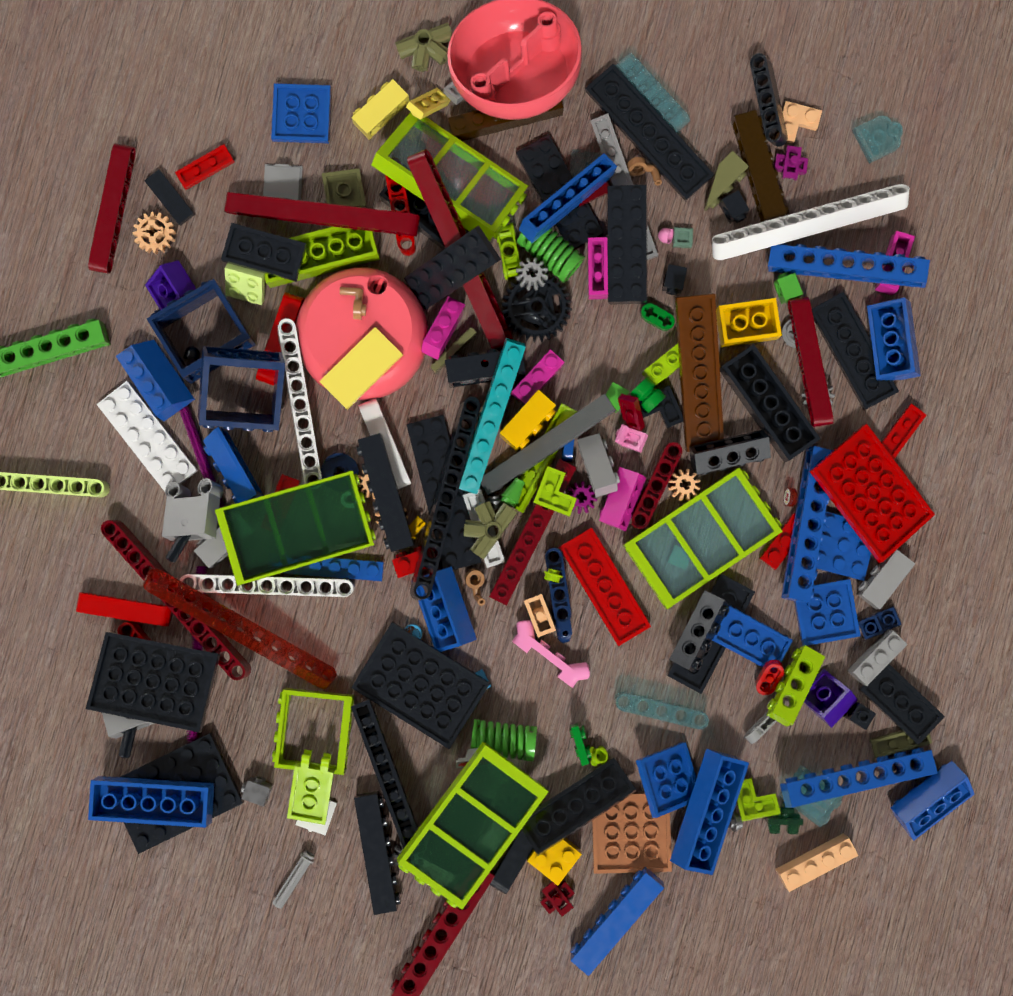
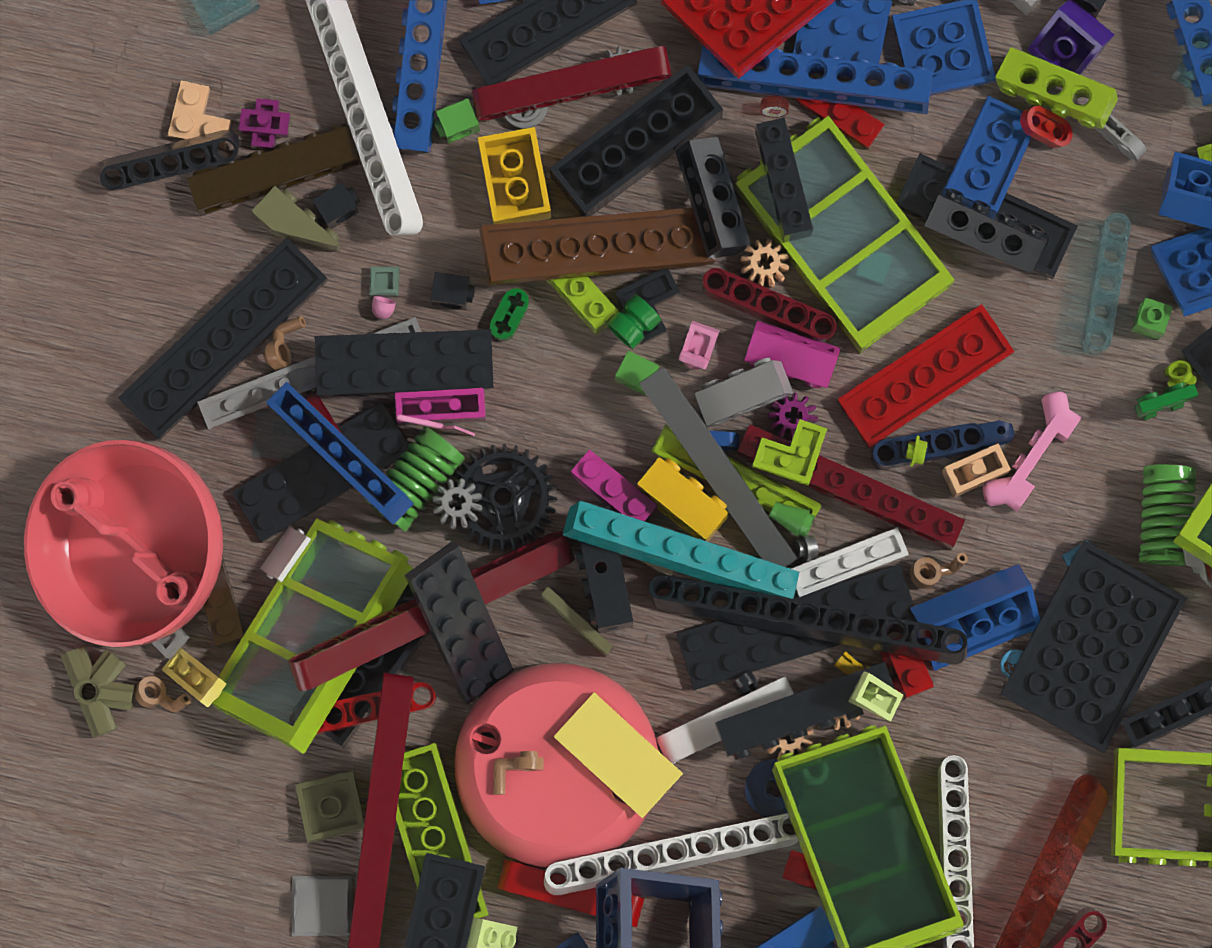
camera: 95 degrees left, 5 degrees down
(301, 113) = (210, 880): blue plate -> none
(343, 569) = (923, 767): blue plate -> none
(380, 109) = (199, 756): light yellow brick -> none
(389, 537) = (875, 696): none -> yellowish green slope
(409, 456) = (745, 683): none -> black hinge
(420, 85) = (158, 695): none -> medium nougat plate
(443, 328) = (545, 637): dark pink brick -> none
(481, 528) = (836, 555): olive piece -> none
(506, 165) = (285, 554): none -> white piece
(509, 262) = (432, 535): lime piece -> none
(585, 259) = (435, 426): none -> bright pink piece
(631, 412) = (660, 345): dark red plate -> none
(636, 739) = (1152, 318): none -> bright green brick
(653, 92) = (161, 335): clear light blue beam -> none
(739, 497) = (783, 180): none -> black brick

